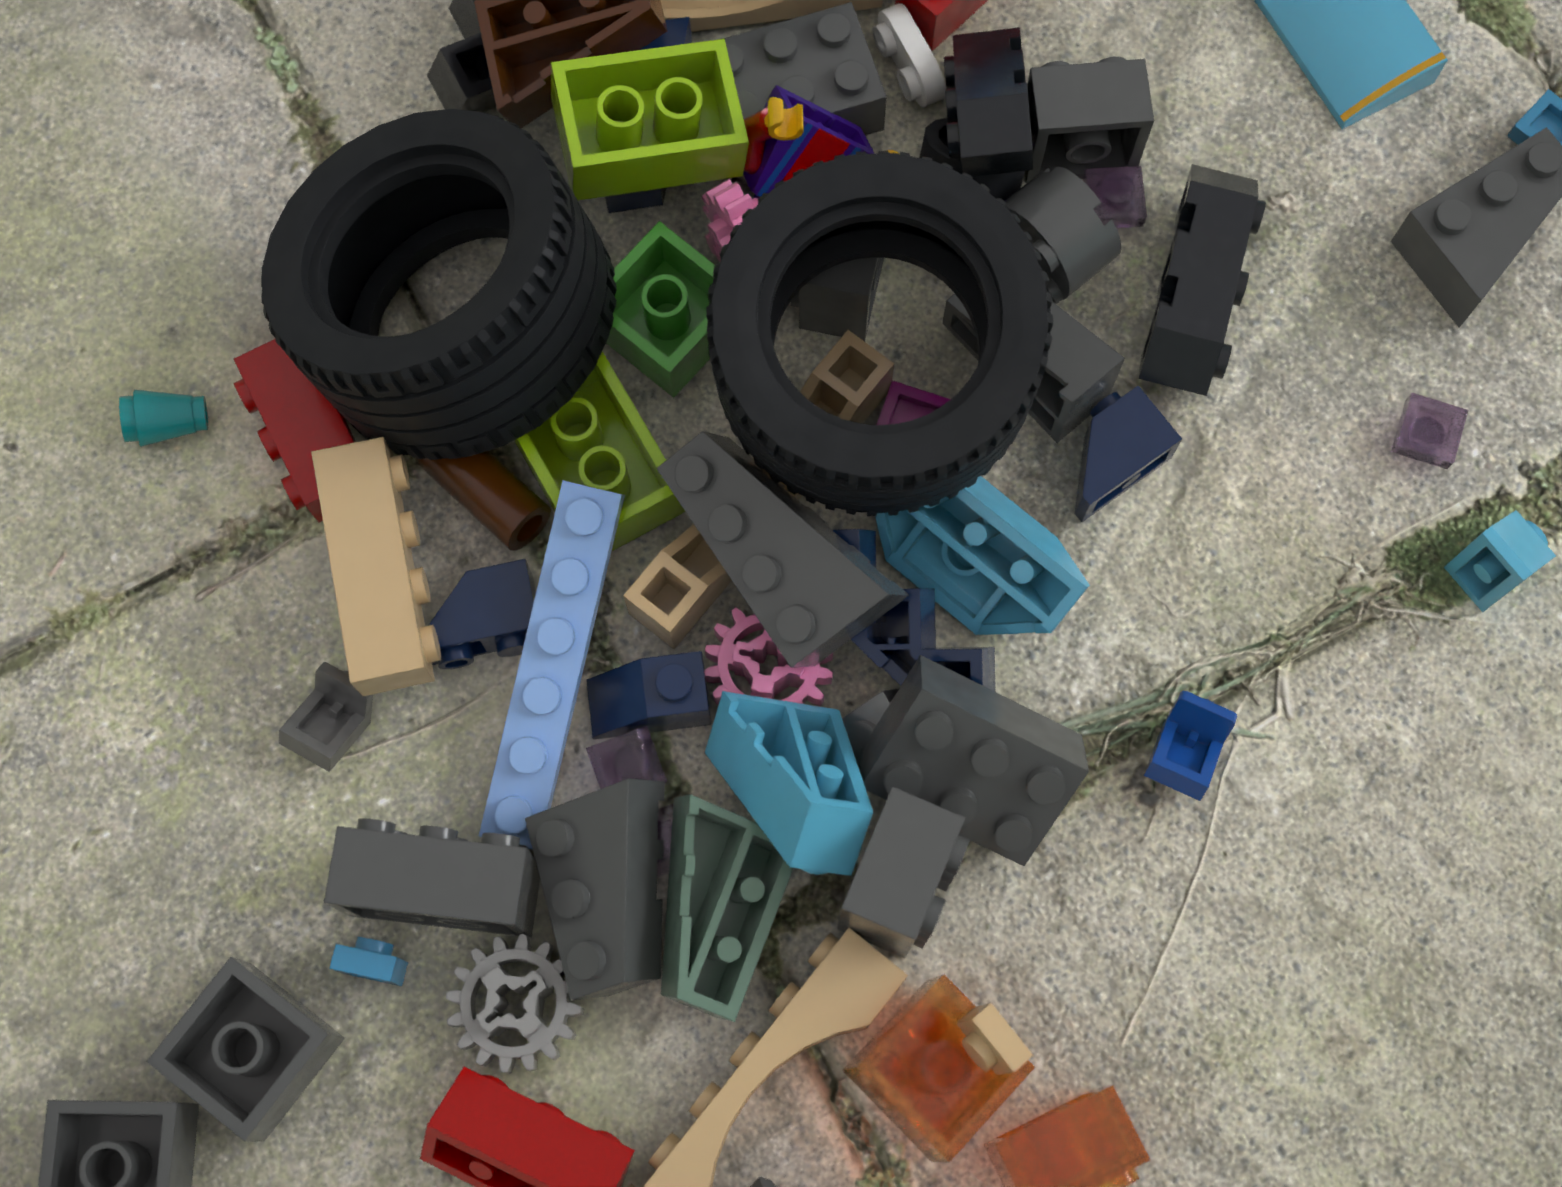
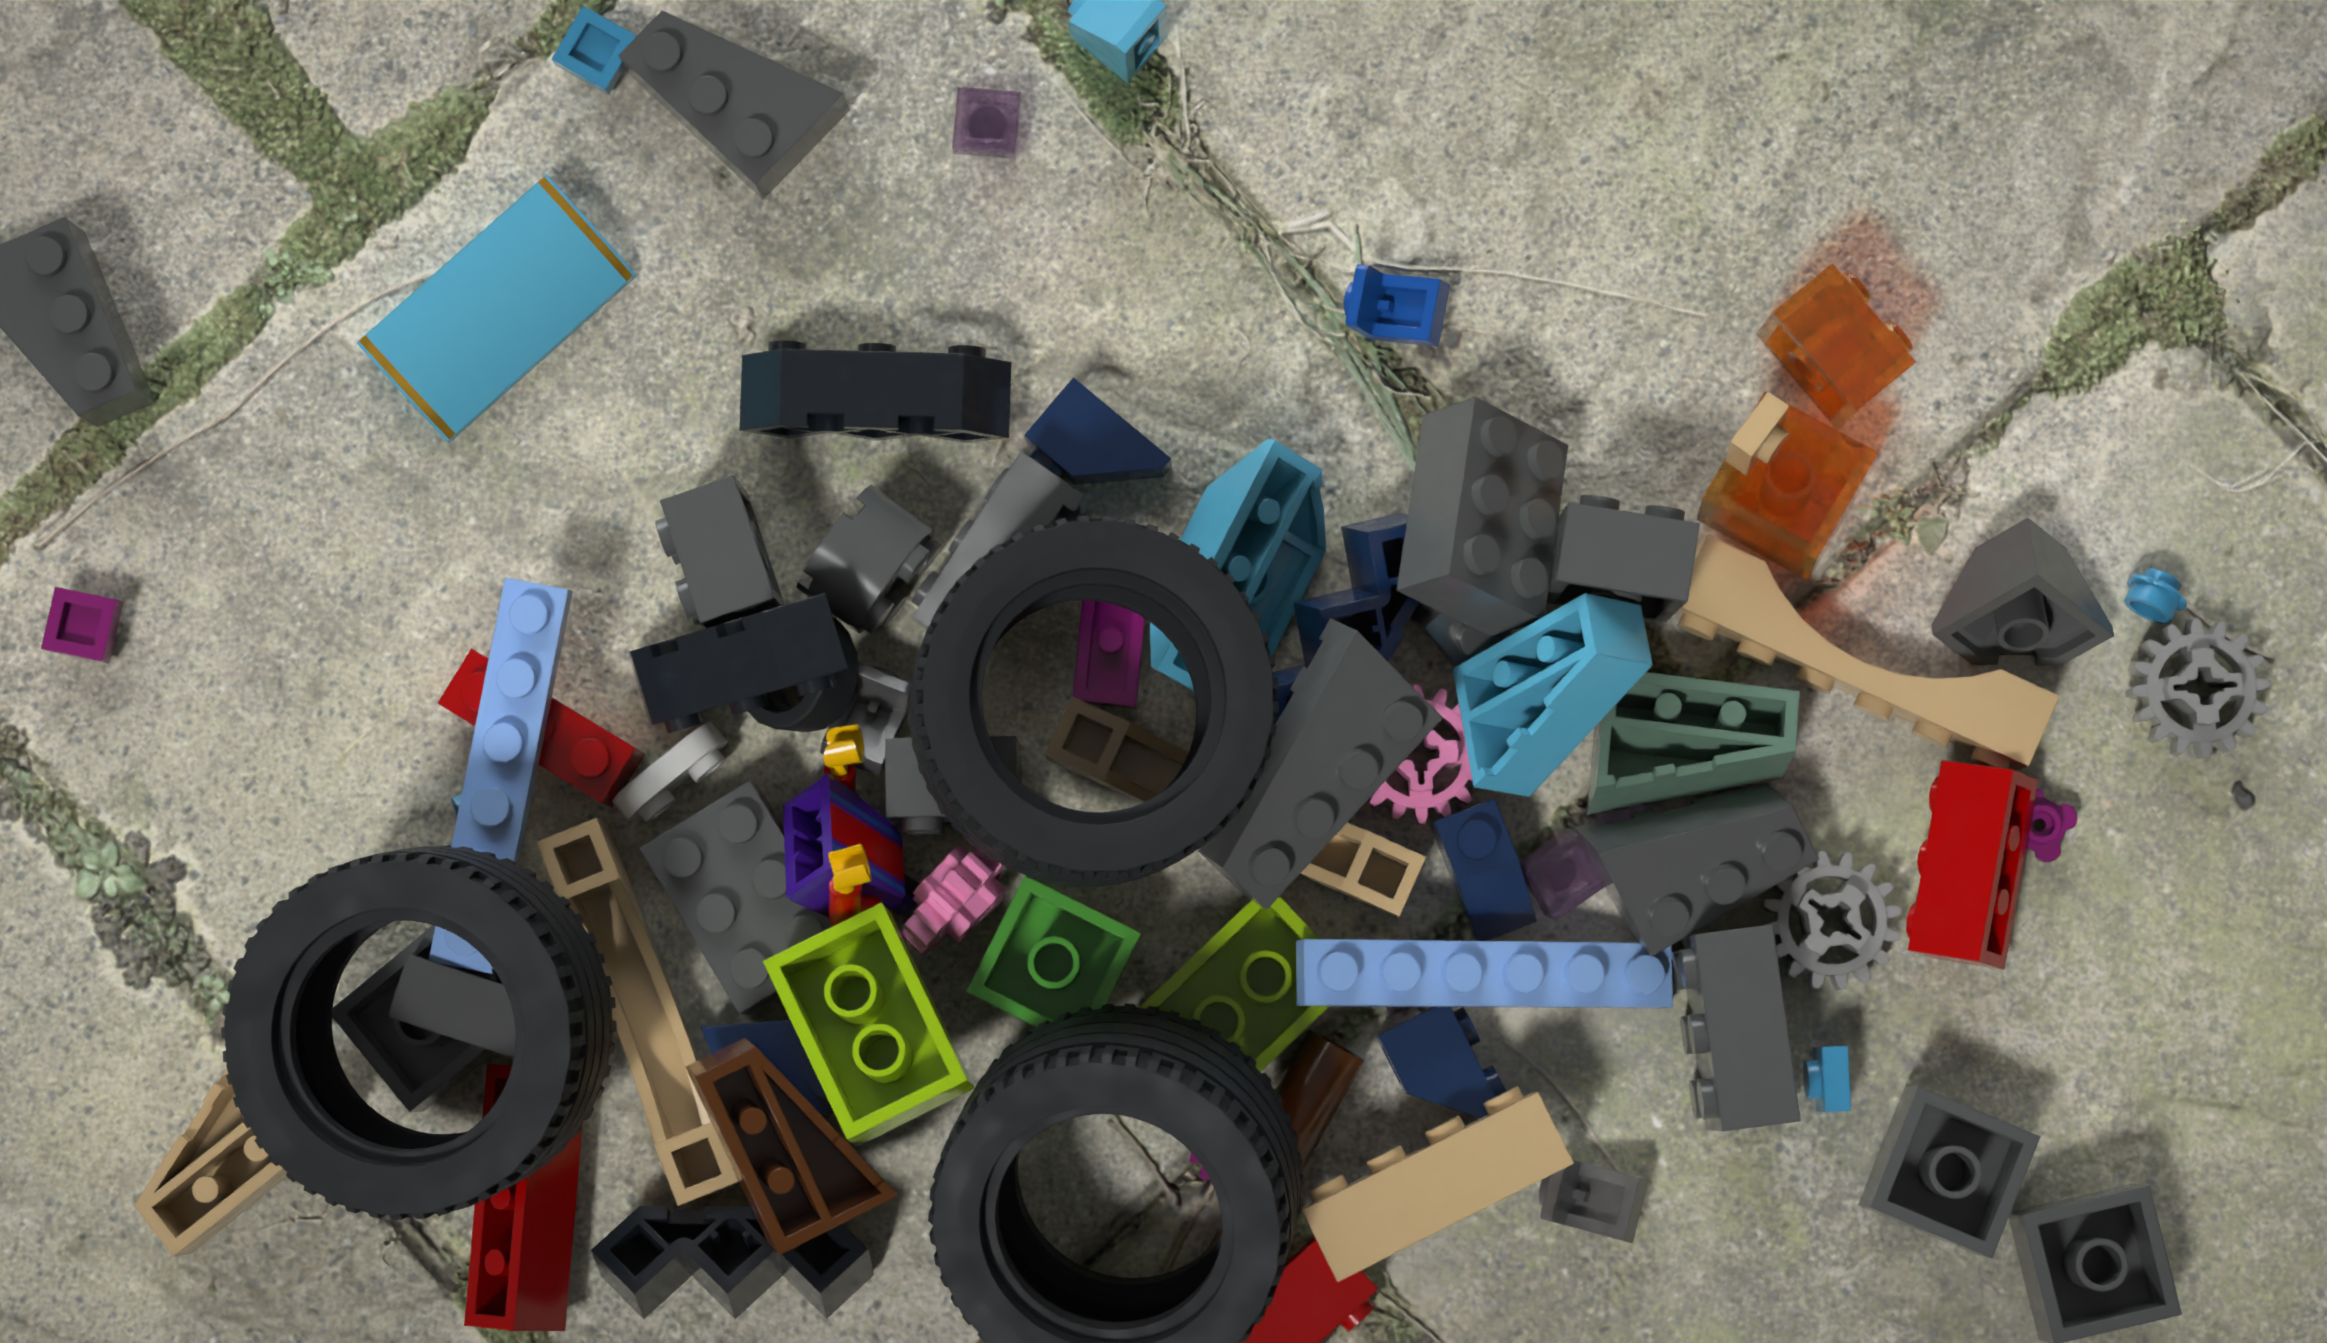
camera: 100 degrees left, 10 degrees up
(1120, 193) = (786, 509): clear purple plate -> none

